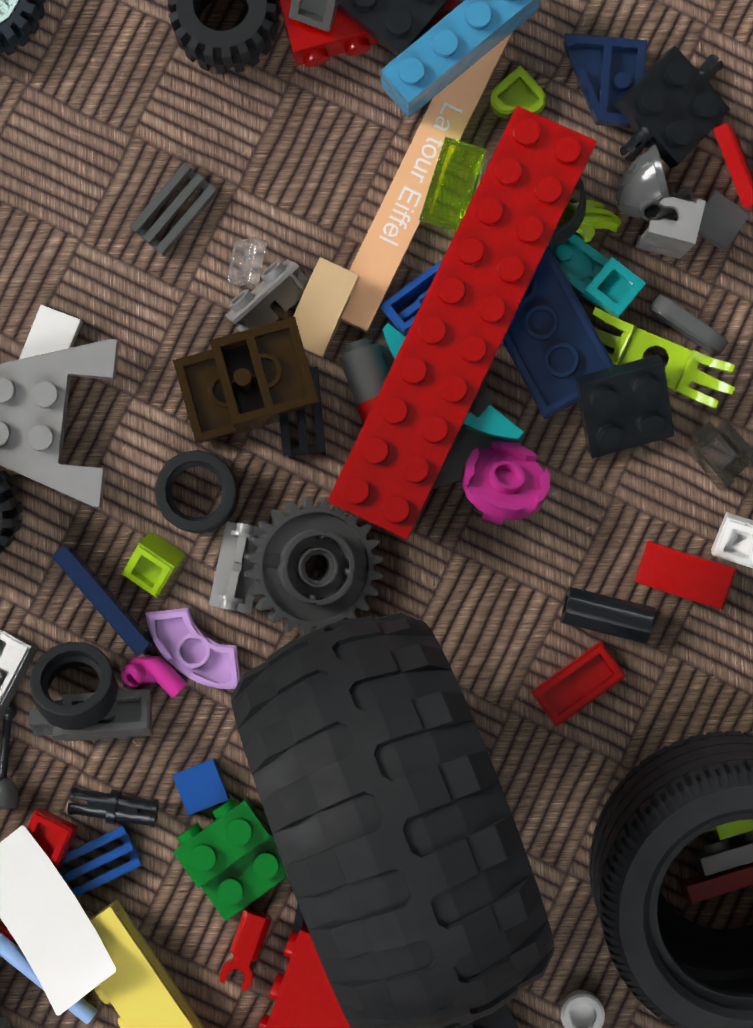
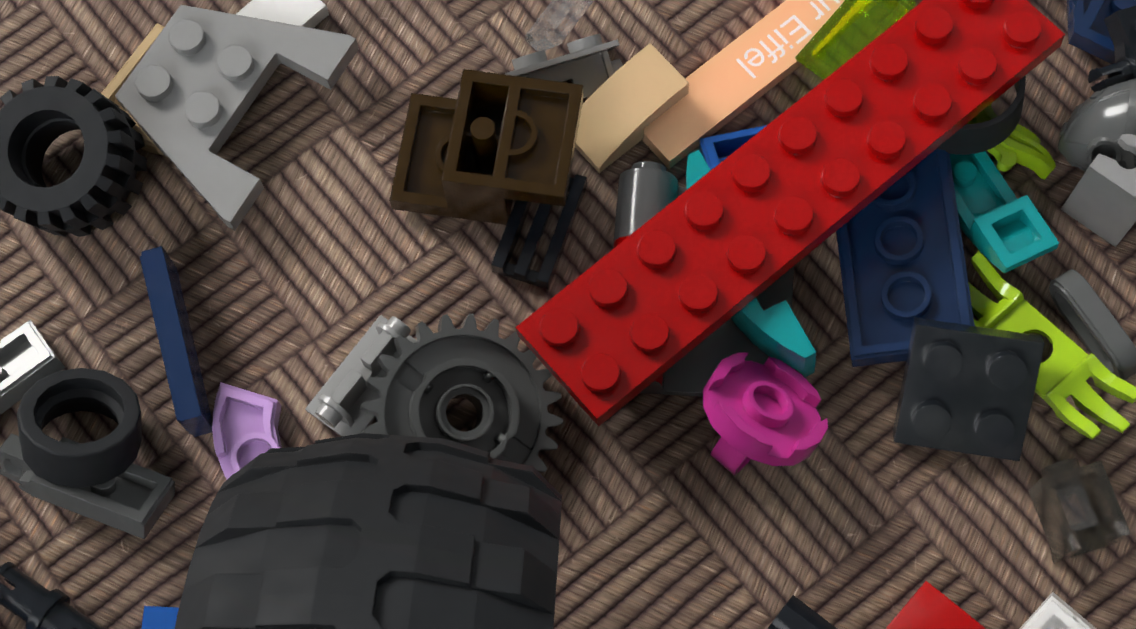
camera: 30 degrees right, 15 degrees down
(153, 563) = (263, 328): lime slope -> none
(153, 670) = (188, 459): dark pink arm -> none
(165, 483) = (341, 223): black tyre -> none

